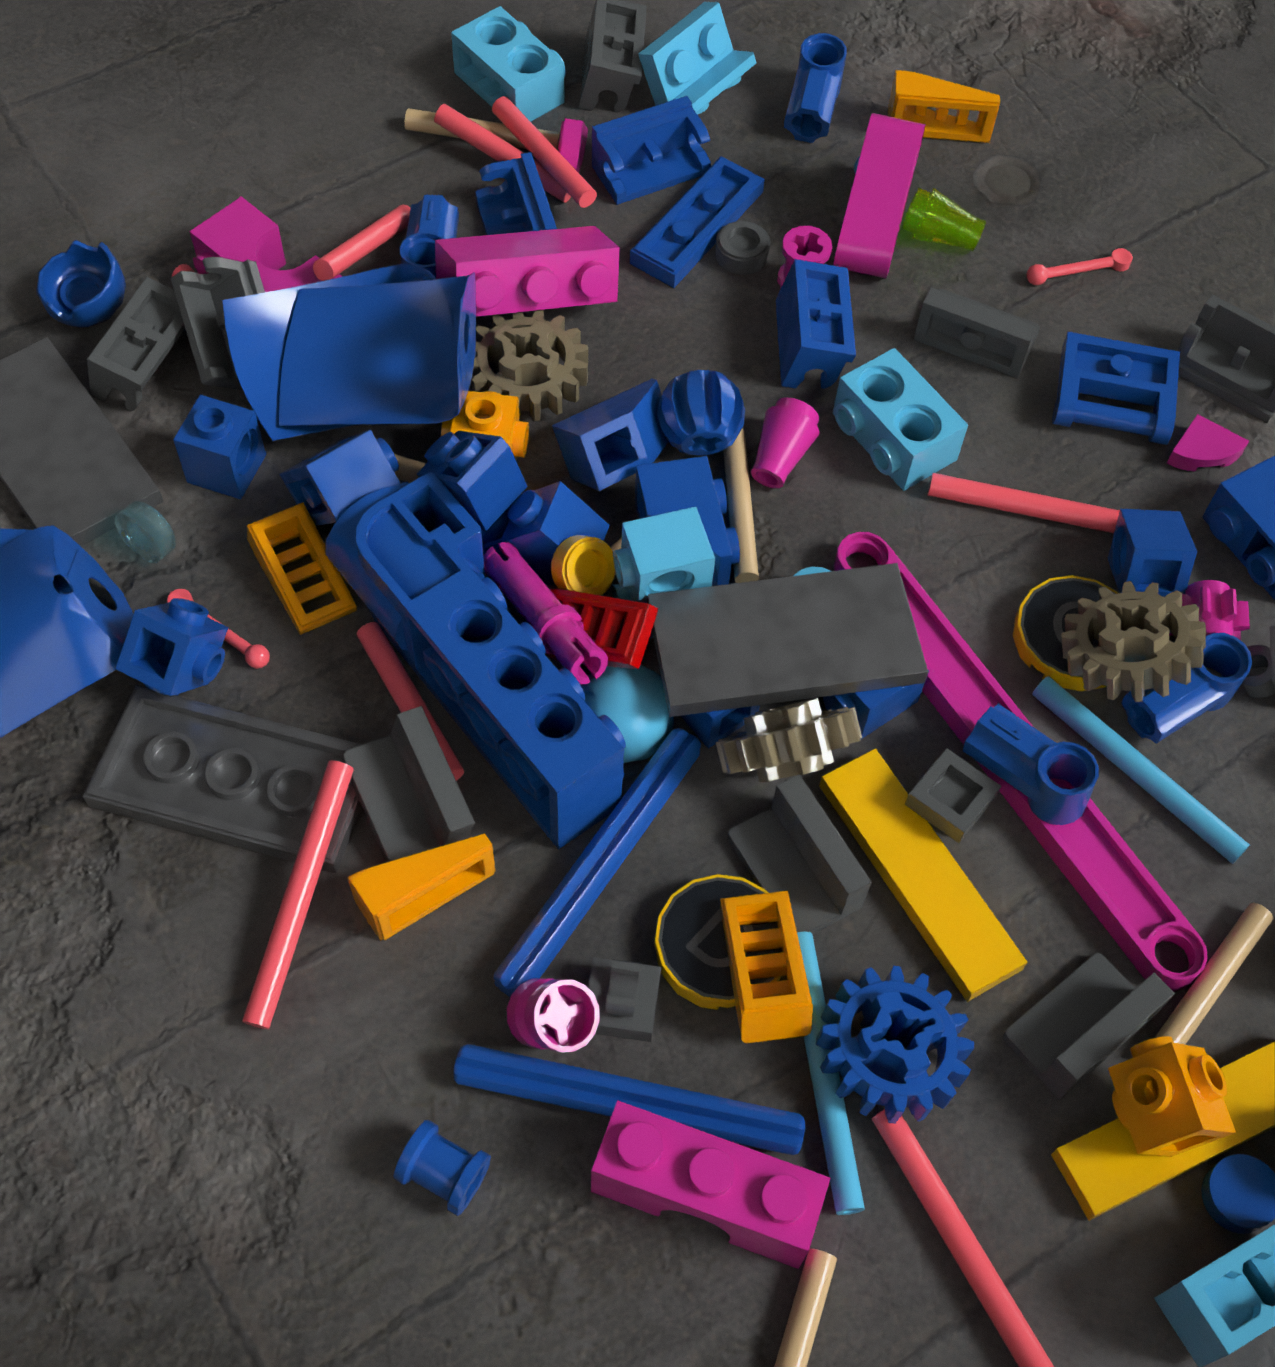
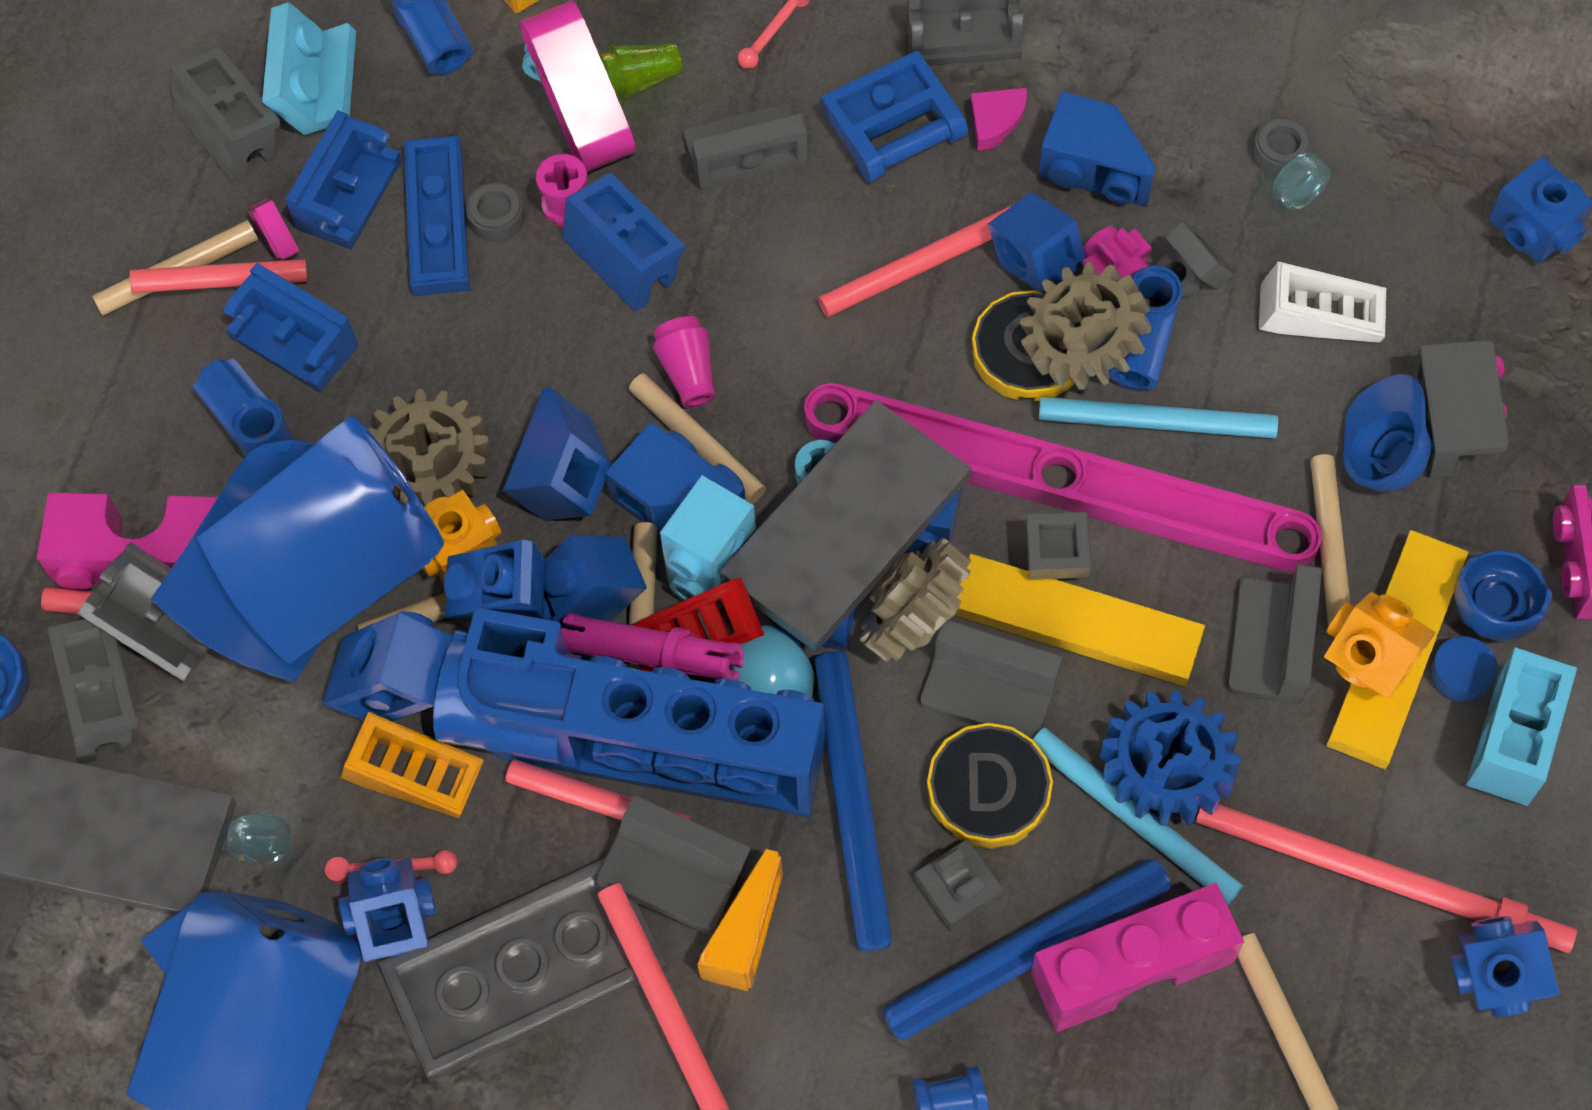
camera: 35 degrees left, 5 degrees up
(220, 446) = (250, 720): blue brick -> none
(362, 243) = (192, 452): coral bar -> none
(505, 59) = (144, 199): medium azure brick -> none
(534, 268) = (360, 367): dark pink brick -> none
(544, 152) = (257, 250): coral bar -> none
(569, 1015) = (930, 935): dark pink wheel -> none
(583, 565) = (643, 587): yellow tile -> none
(701, 412) = (608, 387): blue piece -> none
(769, 1008) = (1071, 800): light orange slope -> none
(898, 419) = (762, 259): medium azure brick -> none
(1029, 762) = (1089, 478): blue piece -> none

